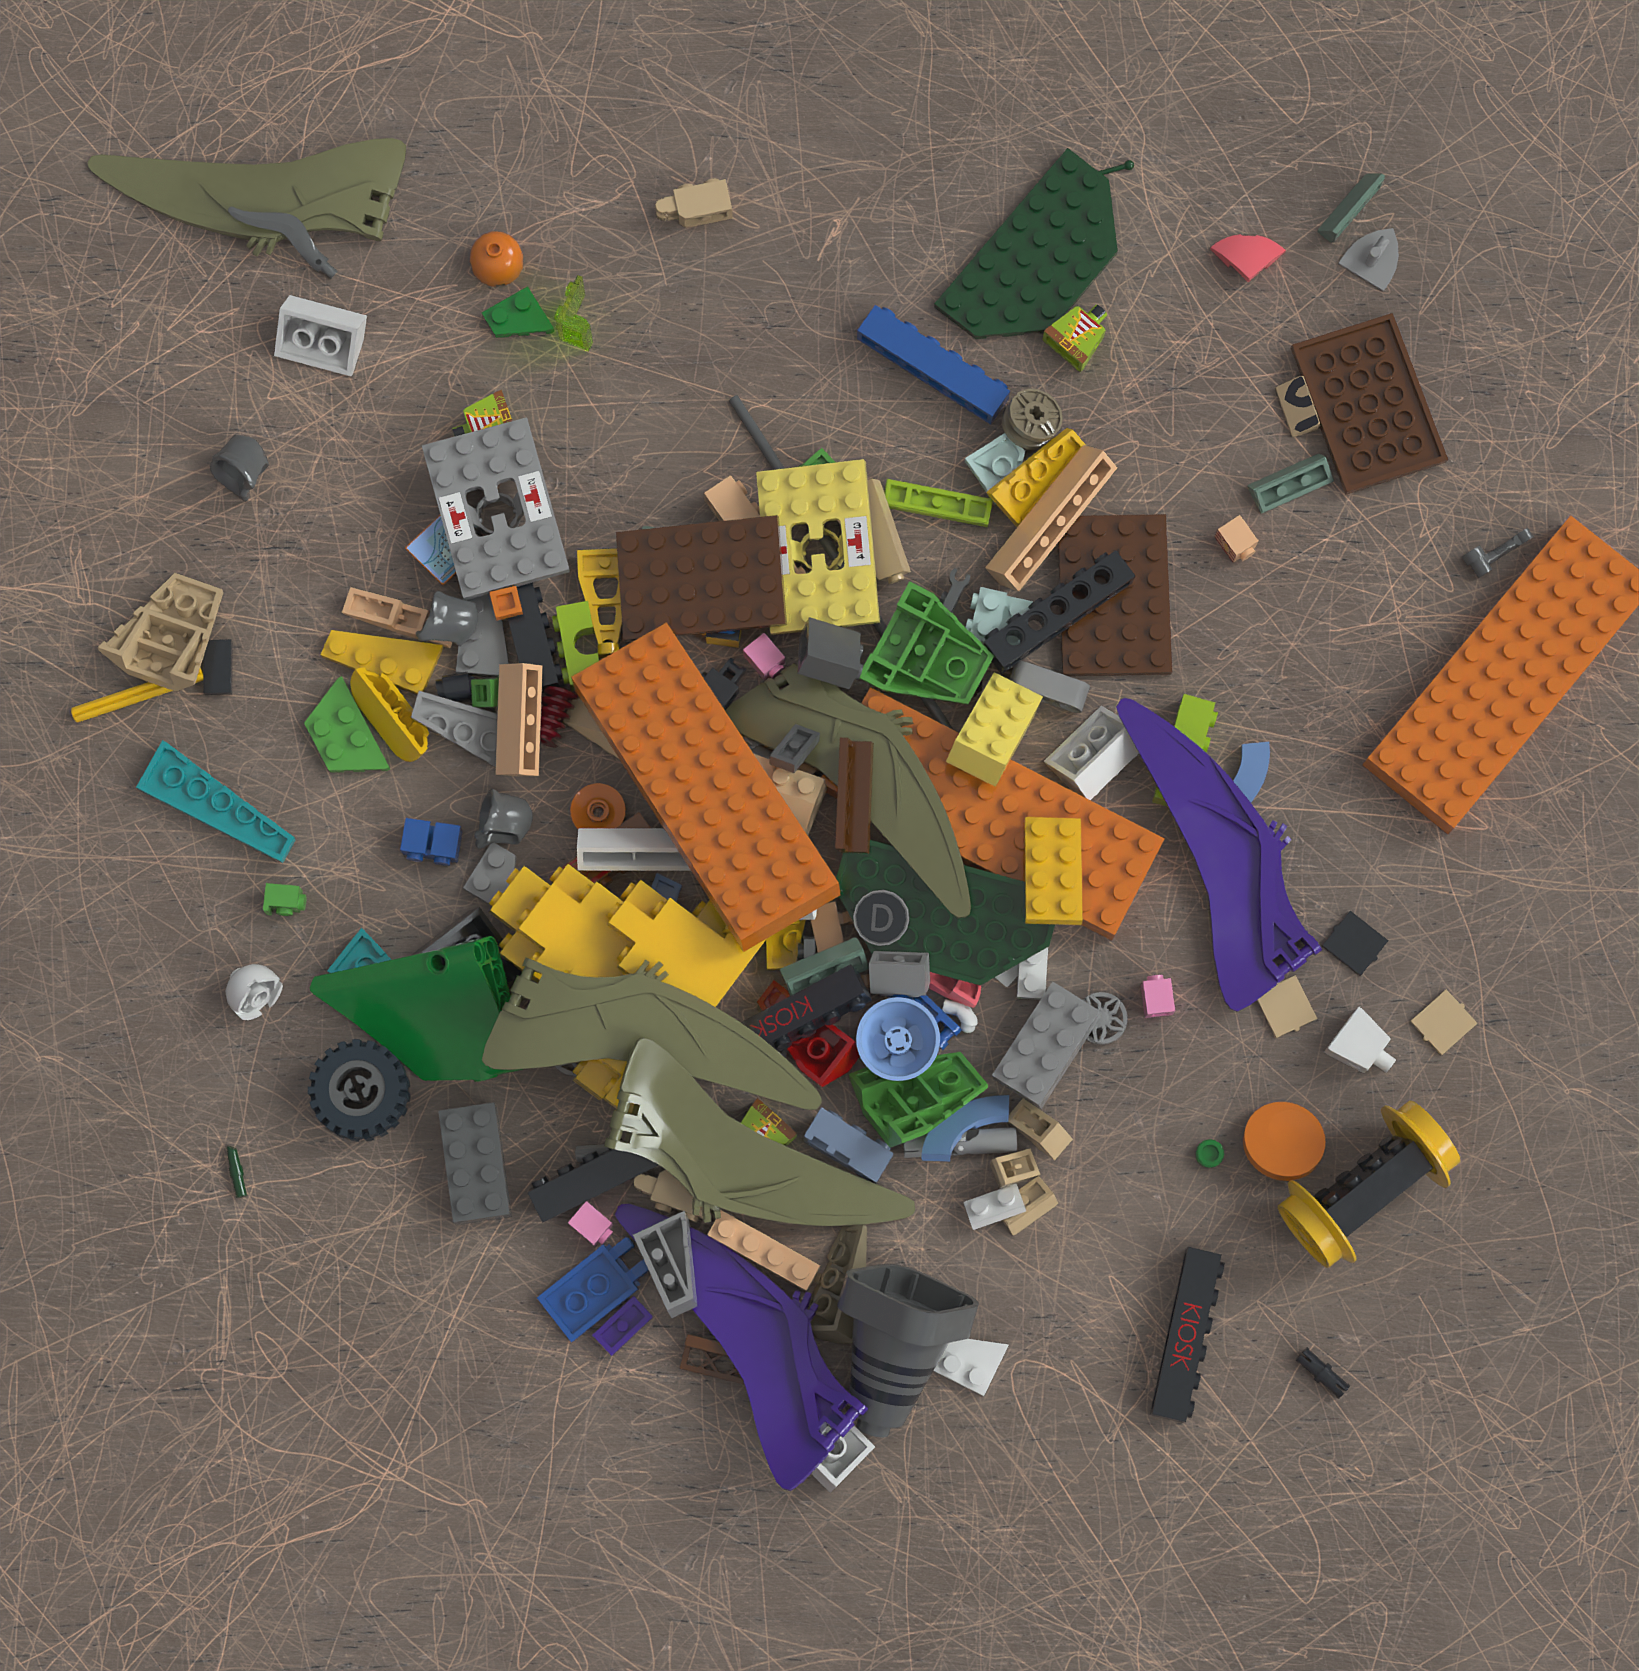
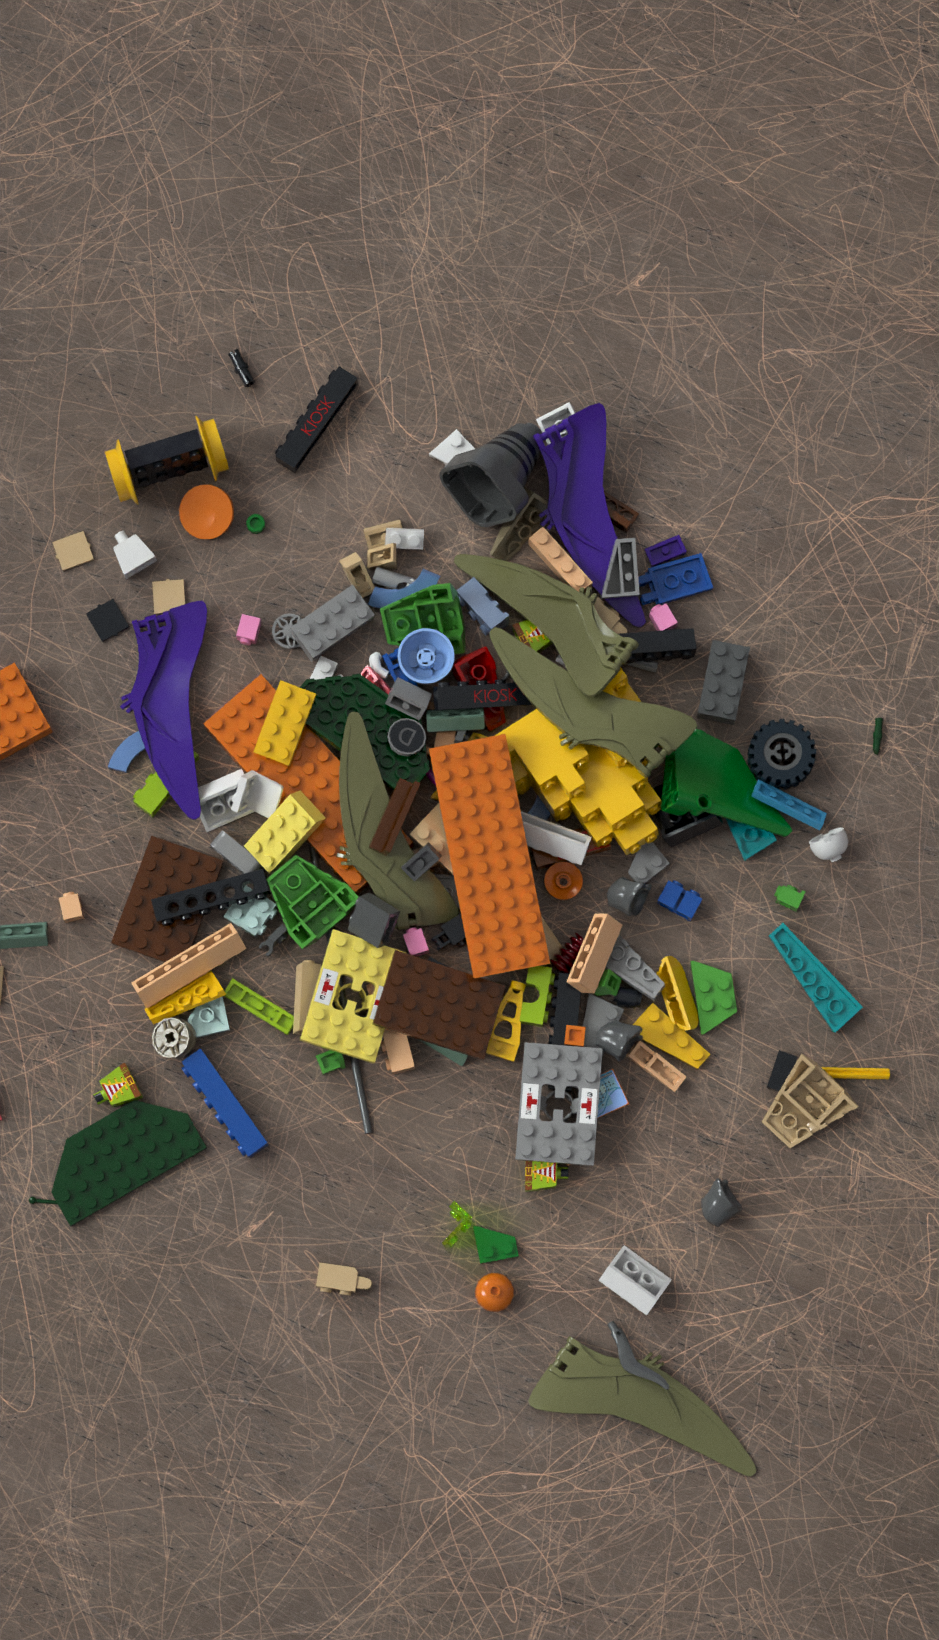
camera: 155 degrees left, 0 degrees up
(325, 1023) = (789, 805): none -> dark azure plate
(1051, 766) = (257, 794): none -> white bracket

